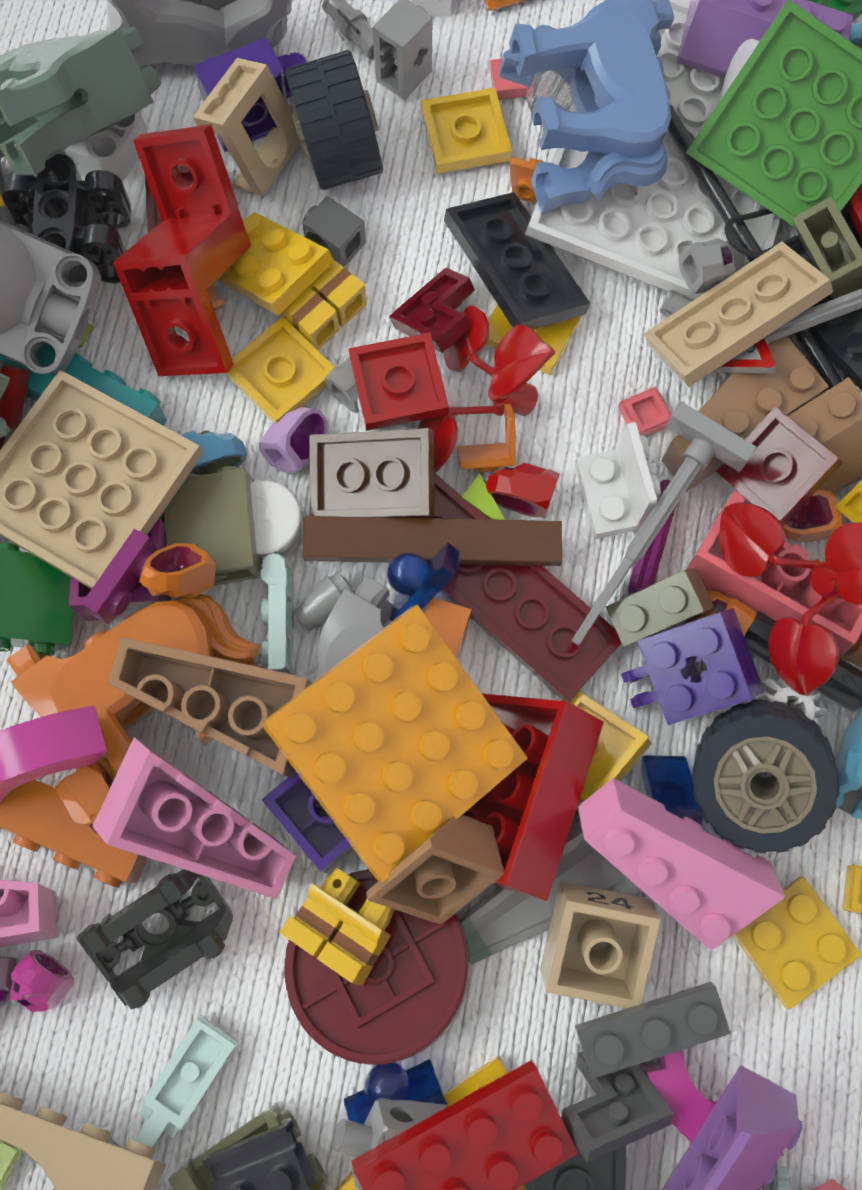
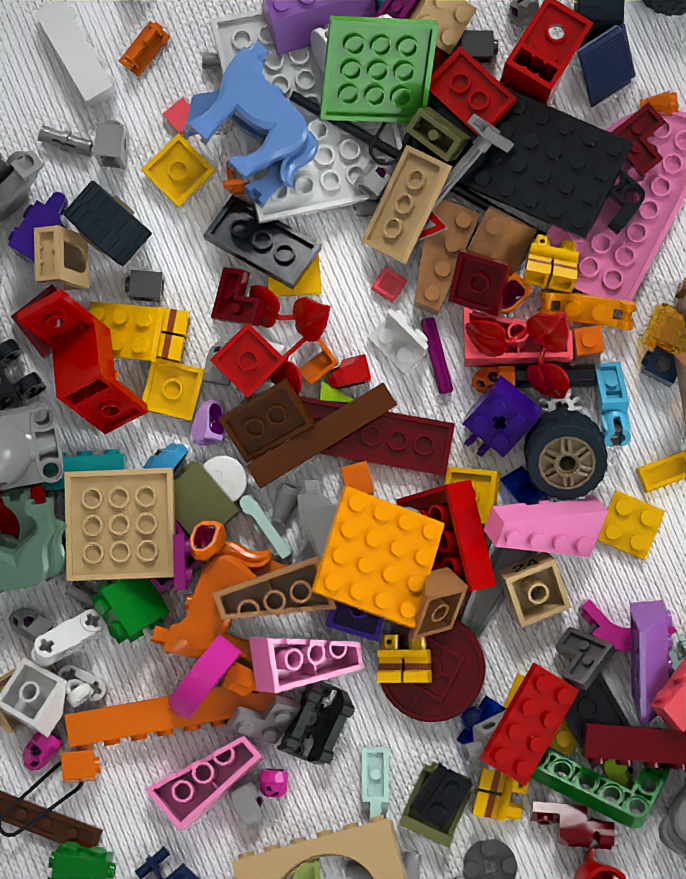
camera: 30 degrees left, 10 degrees up
(86, 890) = (265, 725): none -> light grey plate
(420, 581) = (330, 463): clear blue tile -> none
(652, 1029) = (582, 612): dark grey plate -> none
(660, 606) = (463, 397): brick -> none
(707, 441) = (435, 297): light grey piece -> none

